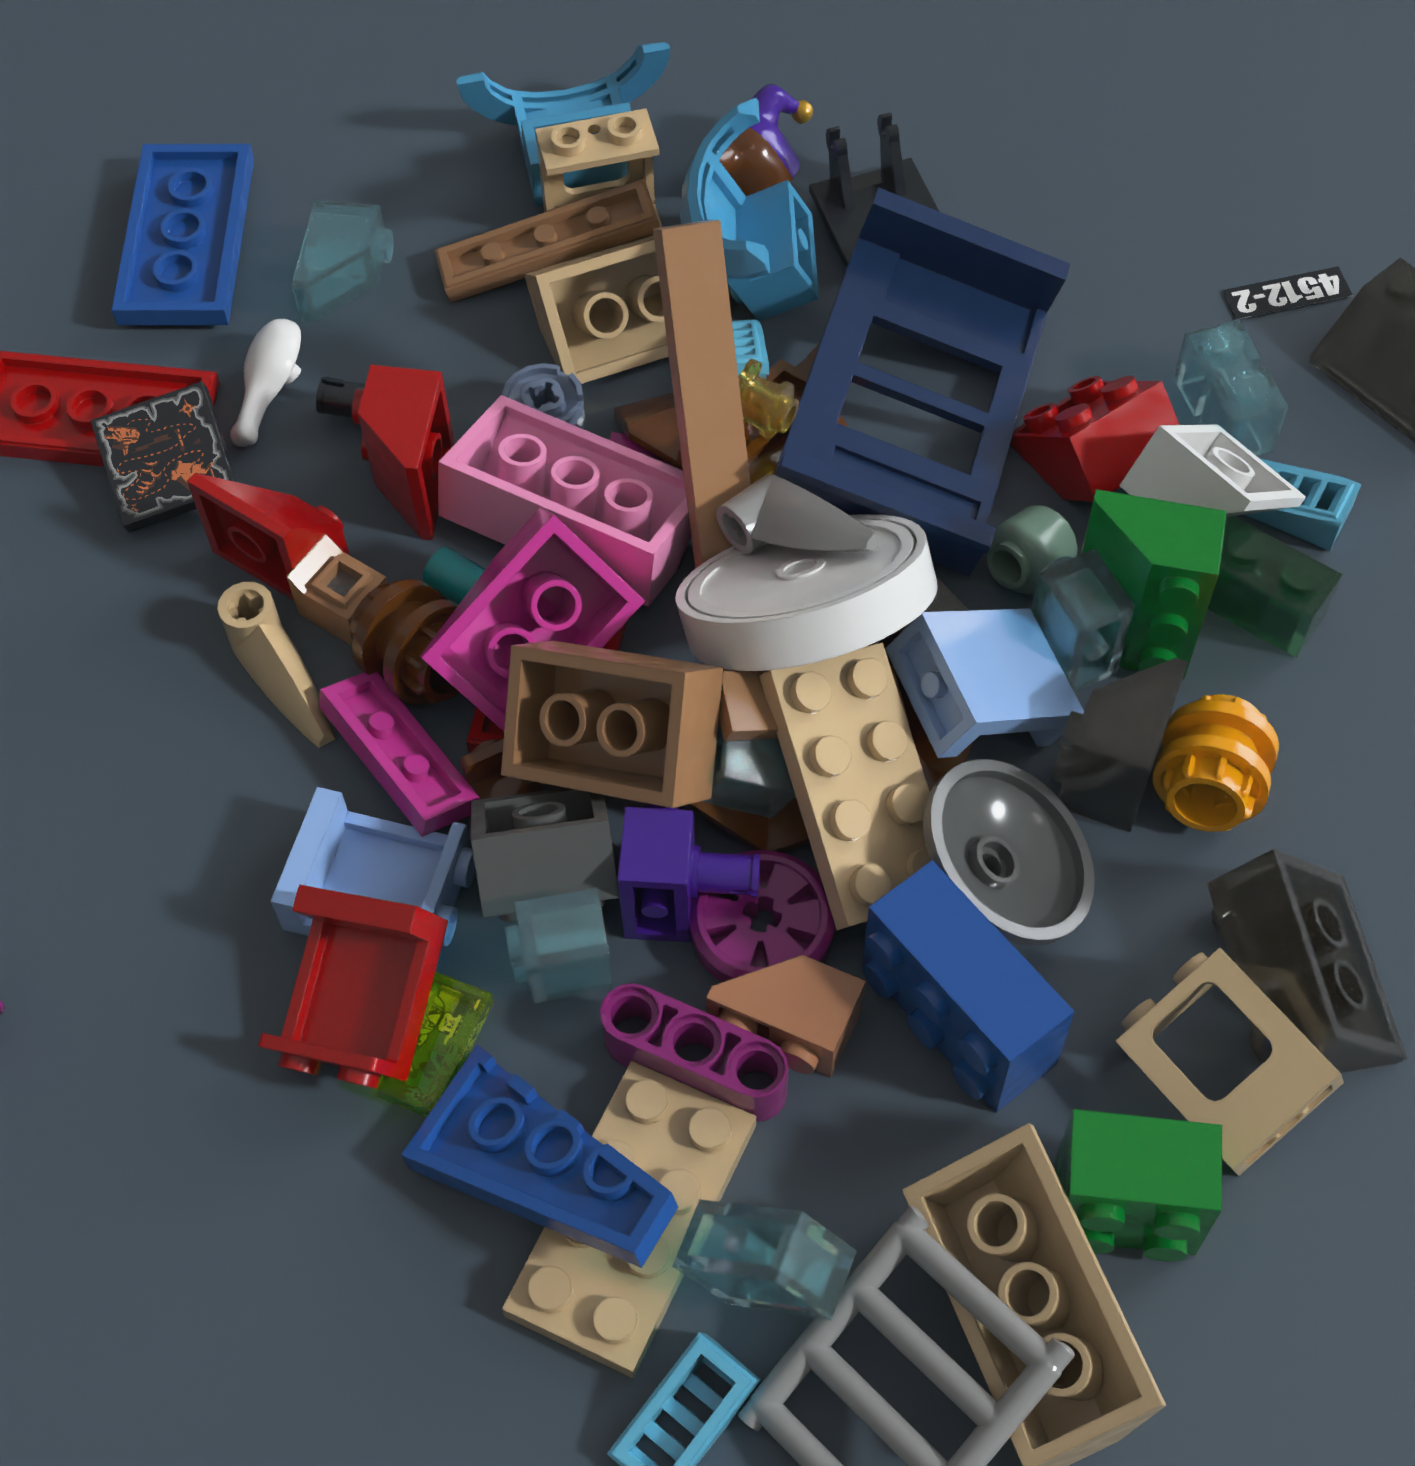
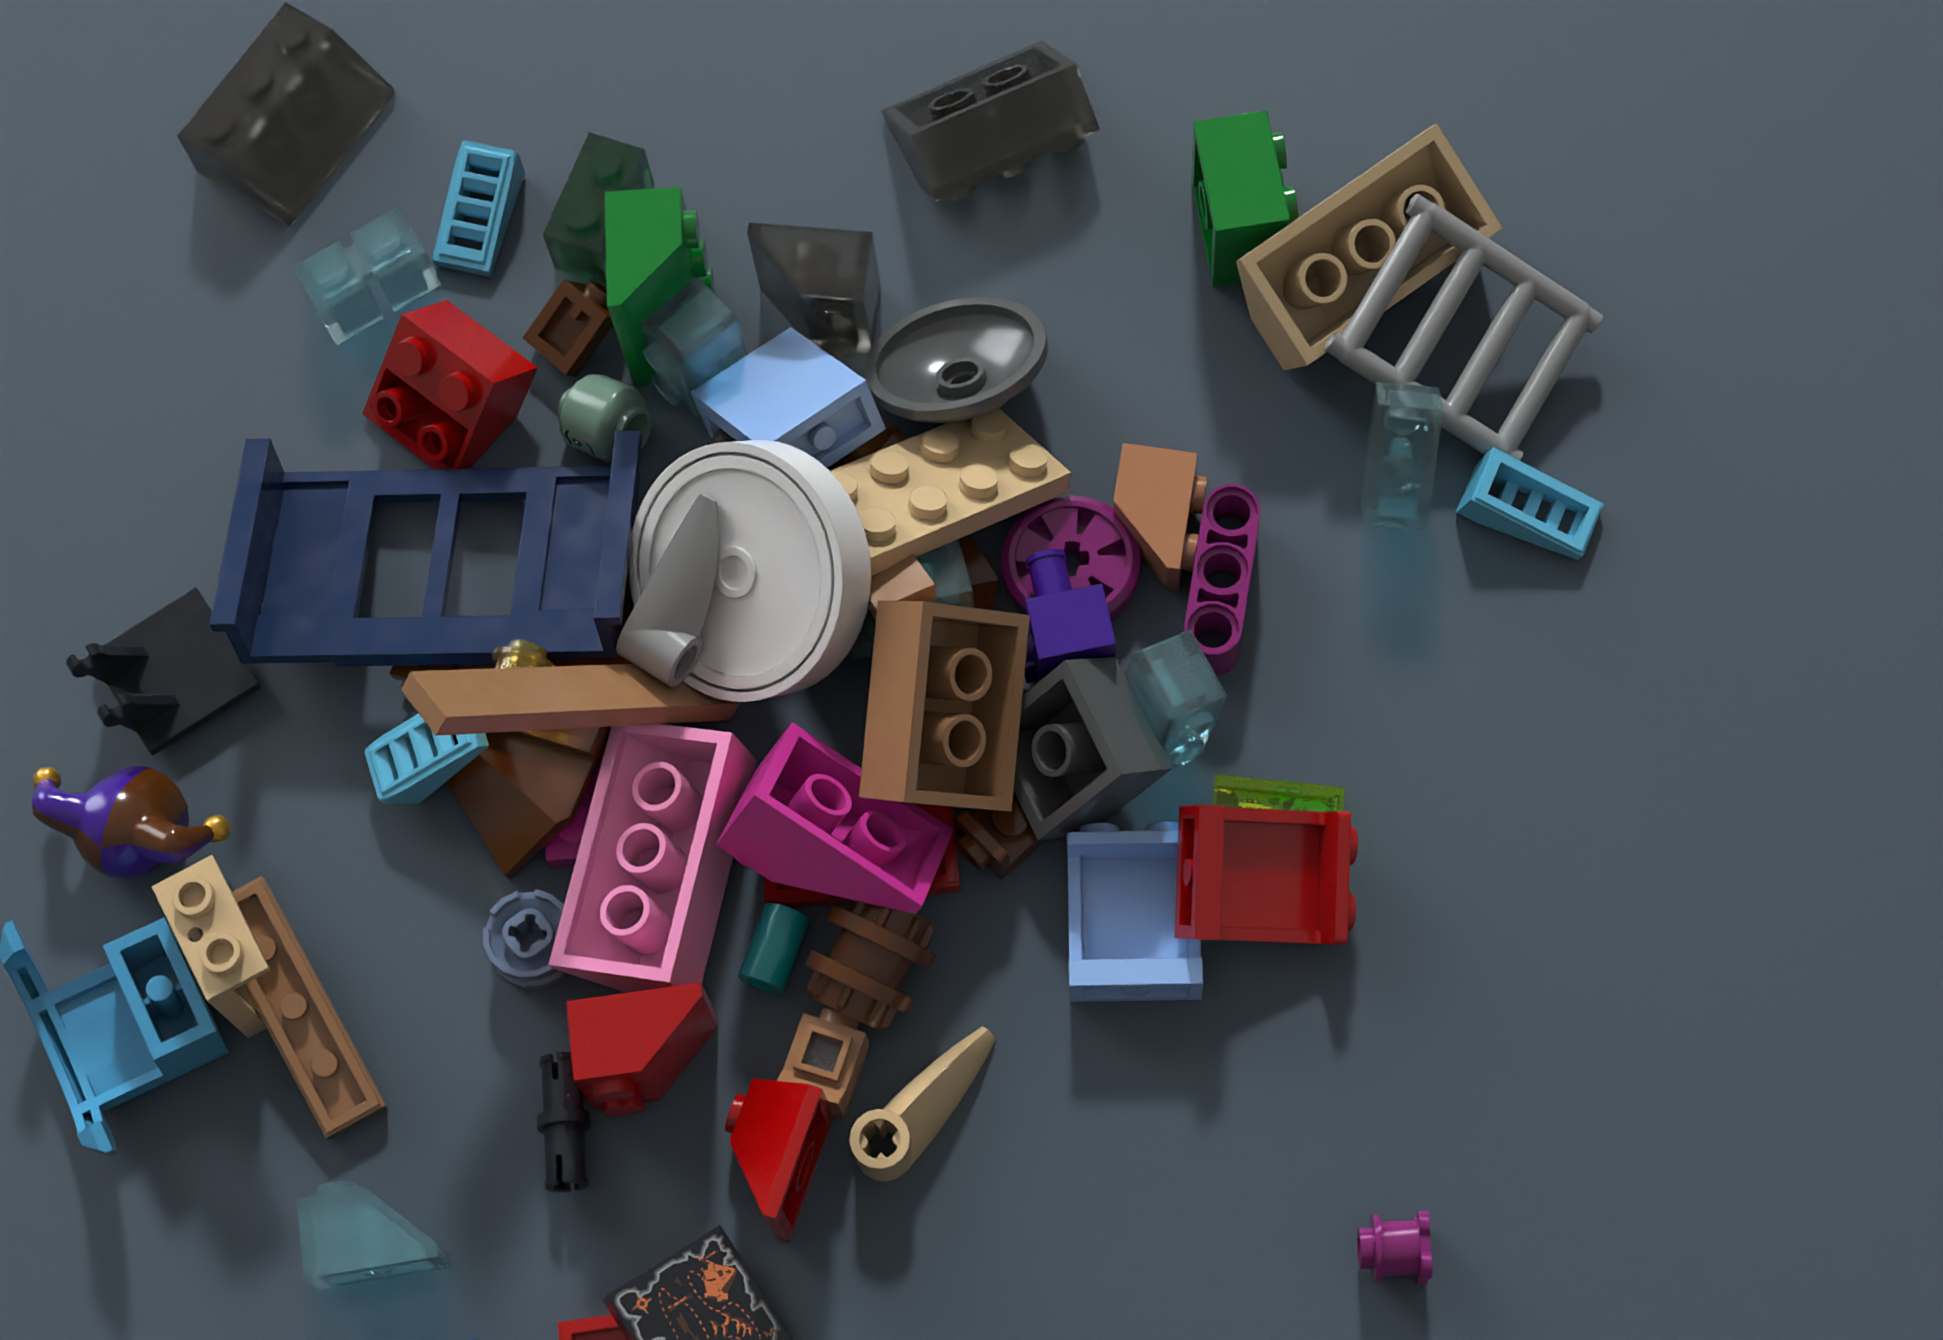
camera: 100 degrees left, 10 degrees up
(266, 370) = (544, 1256): white piece -> none
(398, 752) = (992, 942): dark pink plate -> none
(528, 1158) = (1366, 688): blue wing -> none
(597, 1299) = (1378, 597): tan plate -> none
(602, 310) = (366, 896): tan slope -> none
(763, 234) = (263, 769): dark azure piece -> none
(964, 987) = (1105, 362): blue brick -> none
(1207, 470) = (509, 258): white slope -> none
(1216, 763) = (828, 199): light orange piece -> none
(1270, 1098) = (1138, 111): tan window -> none
(1287, 292) = (201, 258): black sticker -> none

